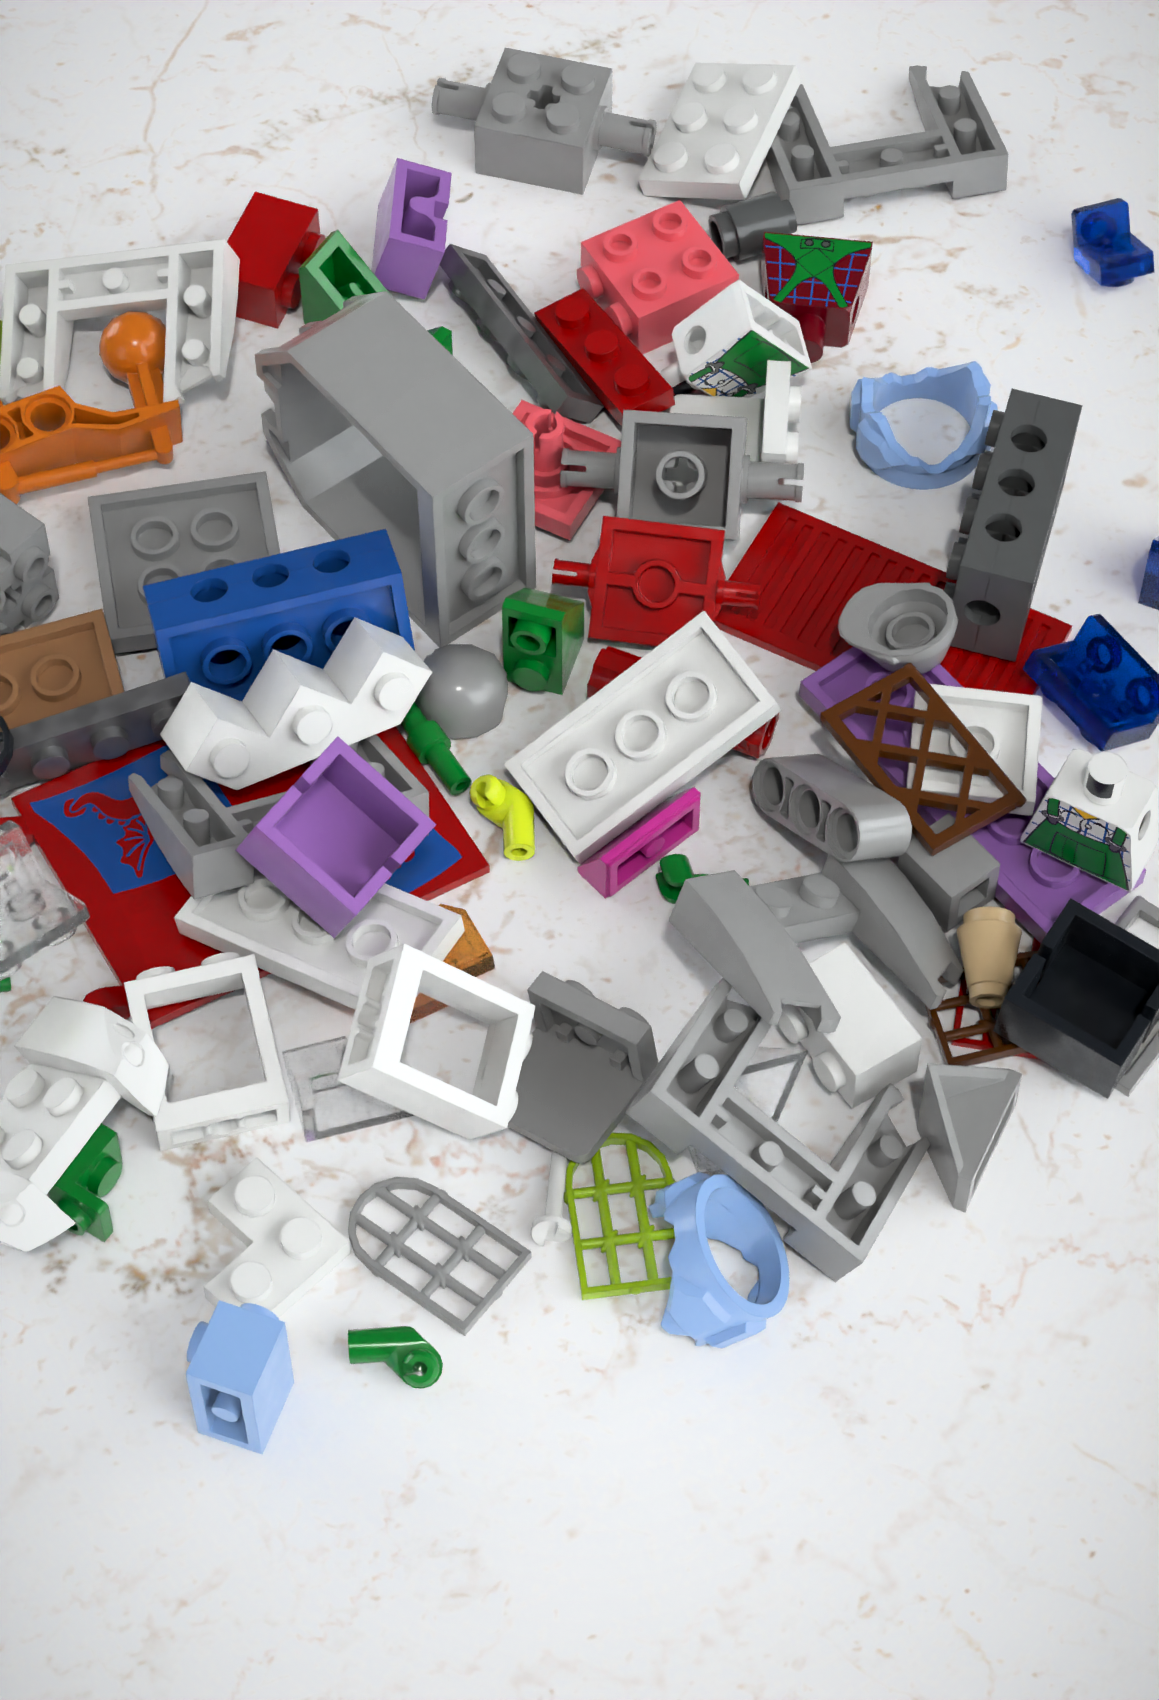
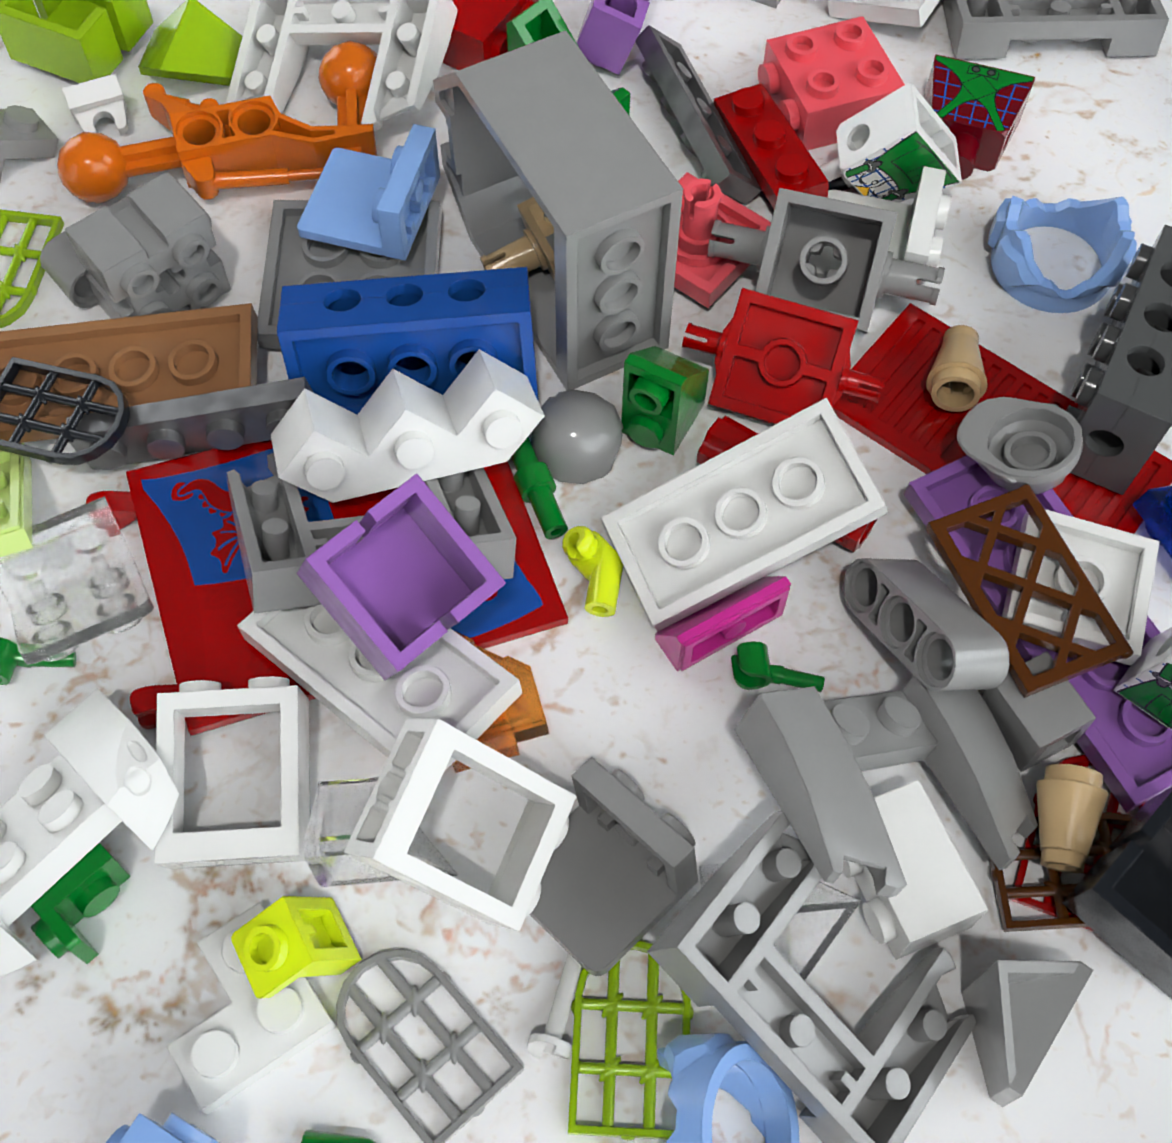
camera: 10 degrees right, 5 degrees up
(197, 480) = (373, 199): none -> light blue bracket
(298, 1177) = (294, 941): none -> neon yellow bracket
(376, 507) = (531, 249): none -> tan bracket
(741, 225) = (915, 47): dark grey brick -> none
(834, 564) = (958, 371): none -> tan cone

